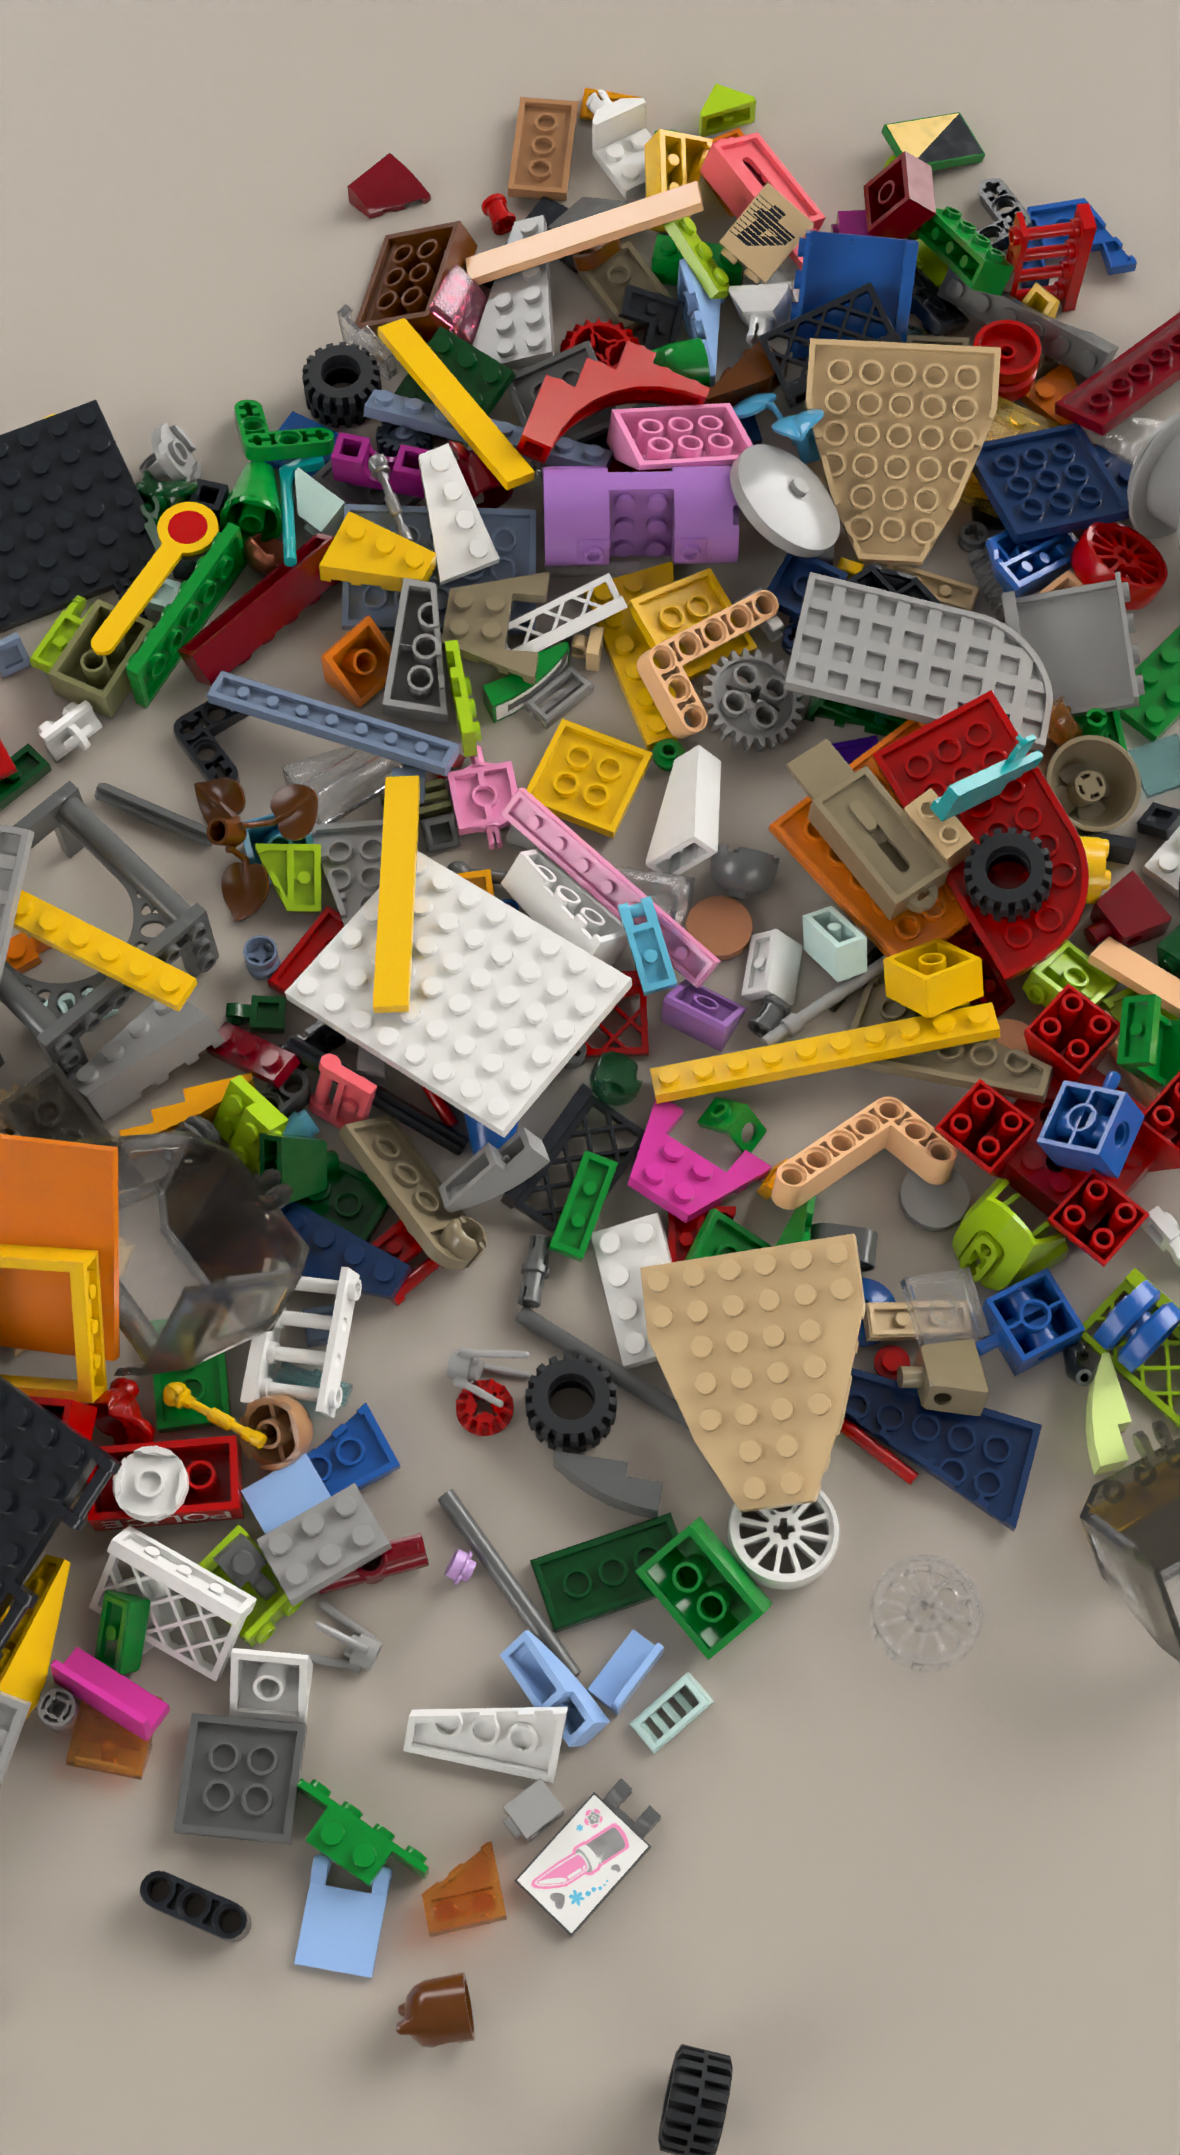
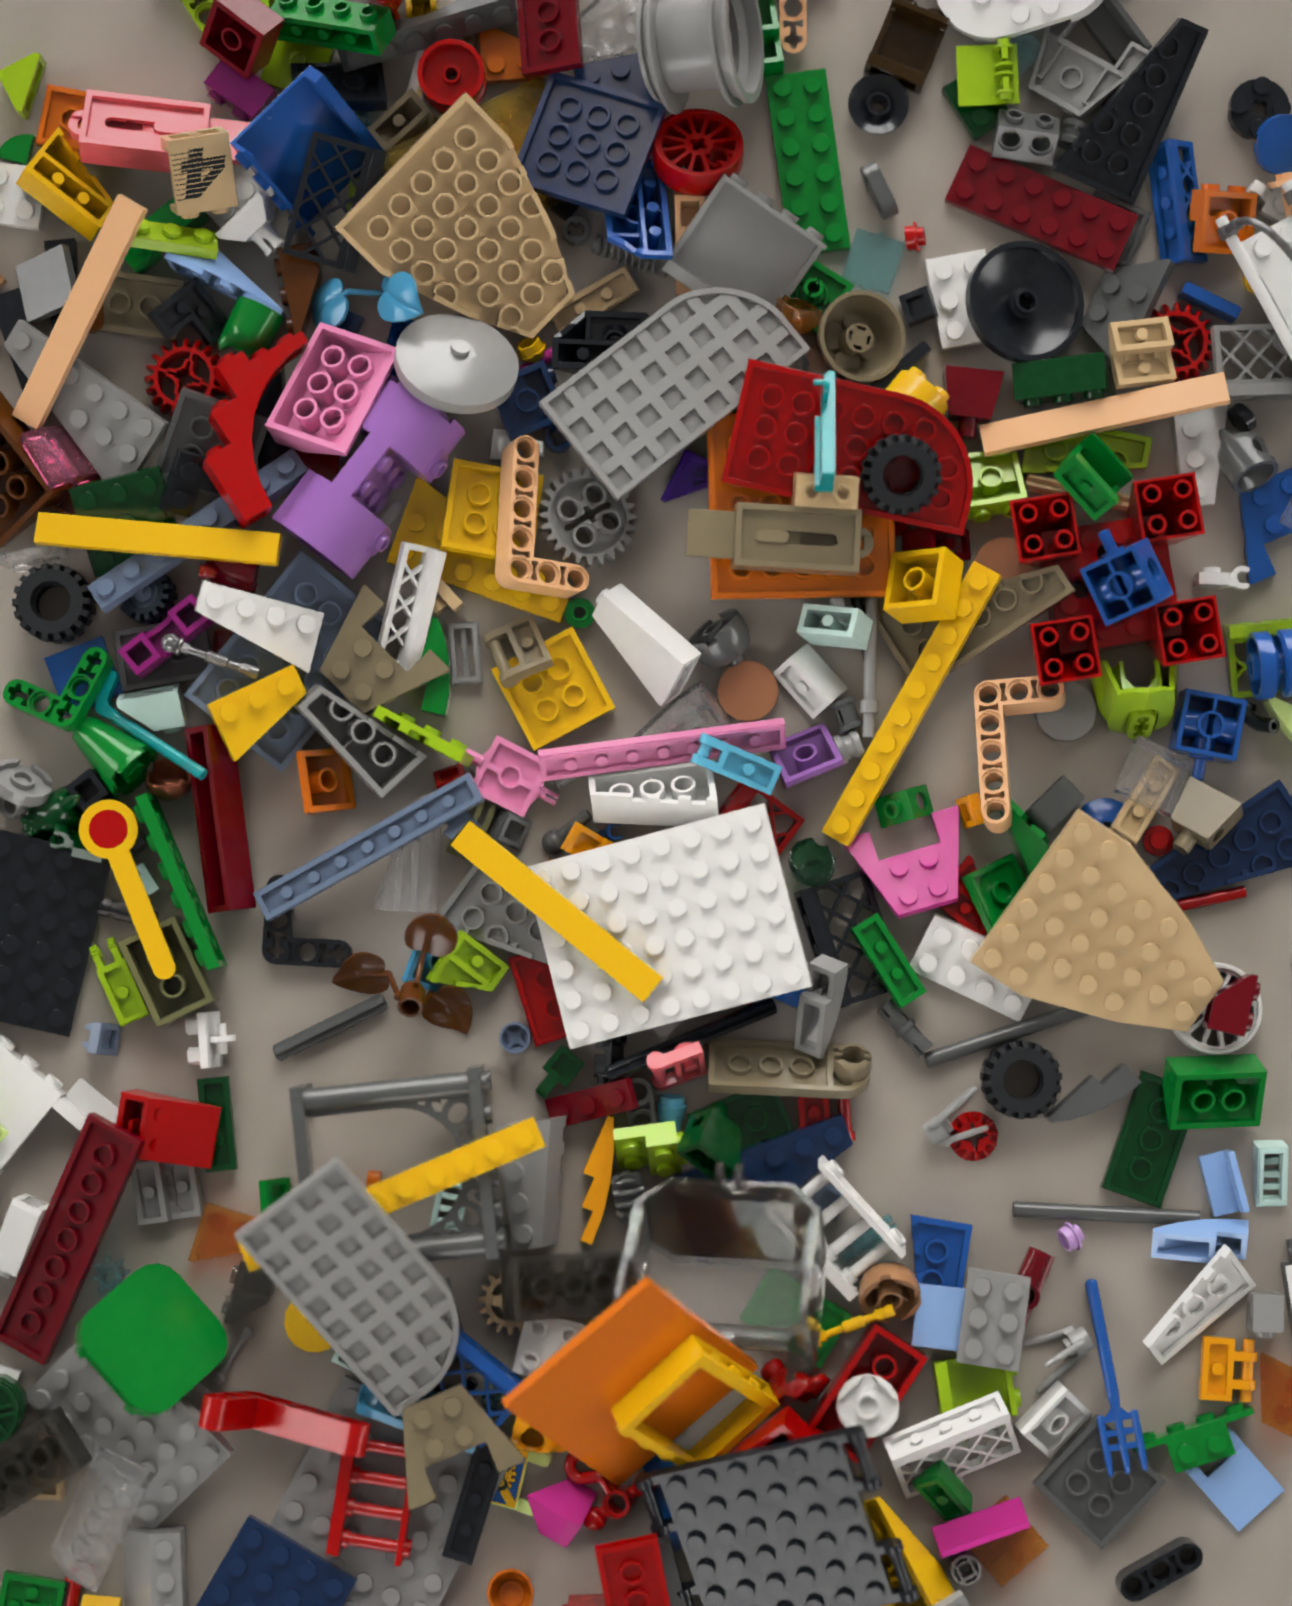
camera: 55 degrees left, 20 degrees up
(243, 1564) = (963, 1380): dark grey plate -> none
(321, 1736) = (1116, 1413): none -> blue piece
(442, 1808) = (1218, 1367): none -> light orange plate
(513, 395) = (184, 483): none -> black plate
(602, 731) = (527, 645): none -> dark tan plate
(741, 1036) = (849, 746): none -> light grey wheel
(796, 1530) = (1231, 1006): none -> dark red slope

